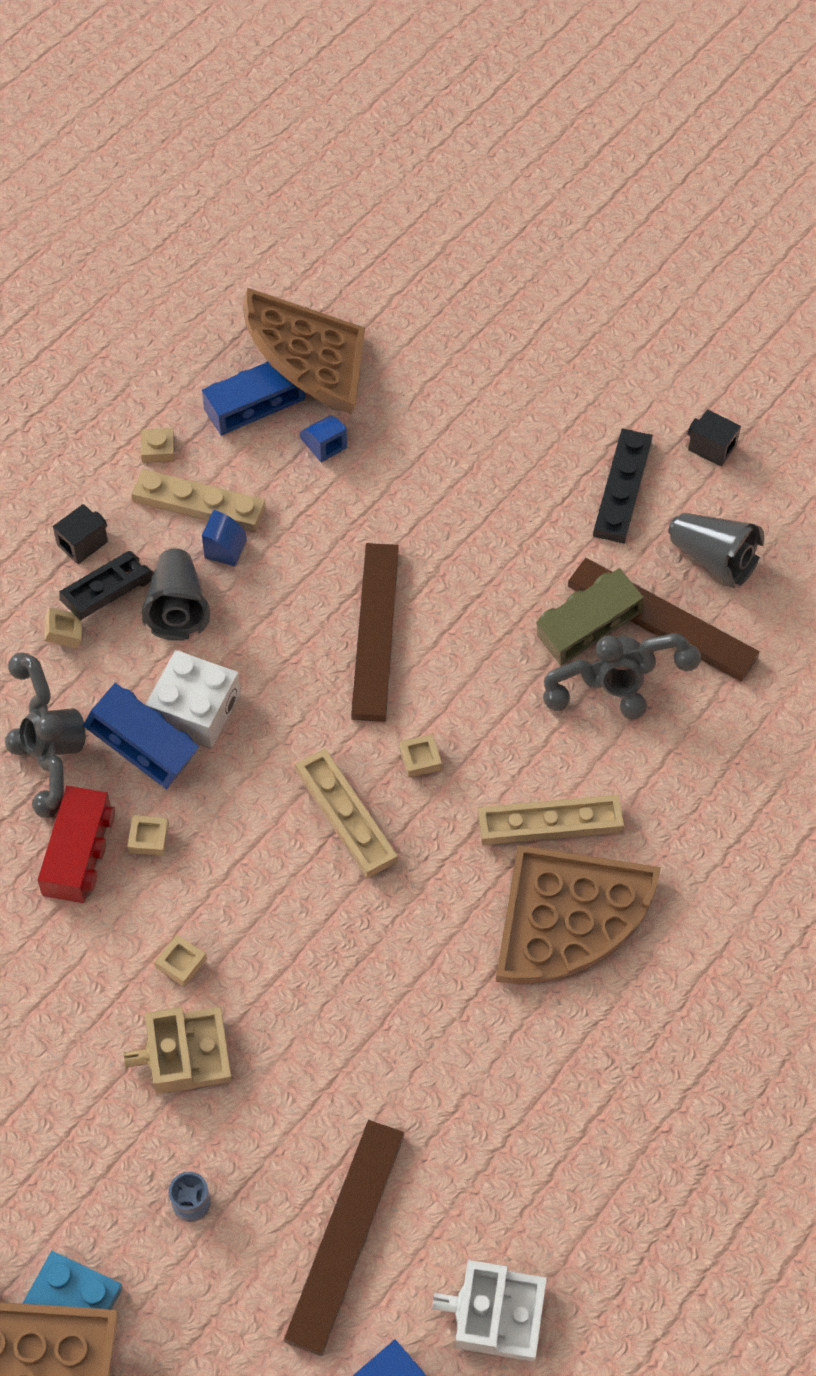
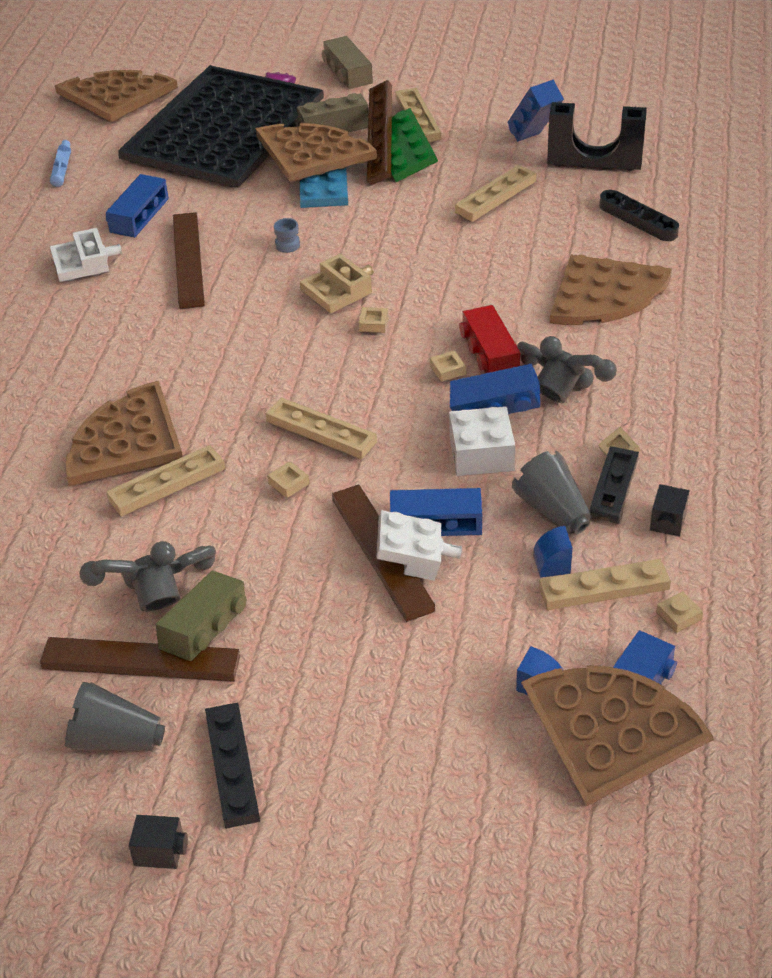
camera: 155 degrees right, 15 degrees down
(299, 637) = (455, 509): none -> blue brick
(350, 598) = (413, 543): none -> white plate

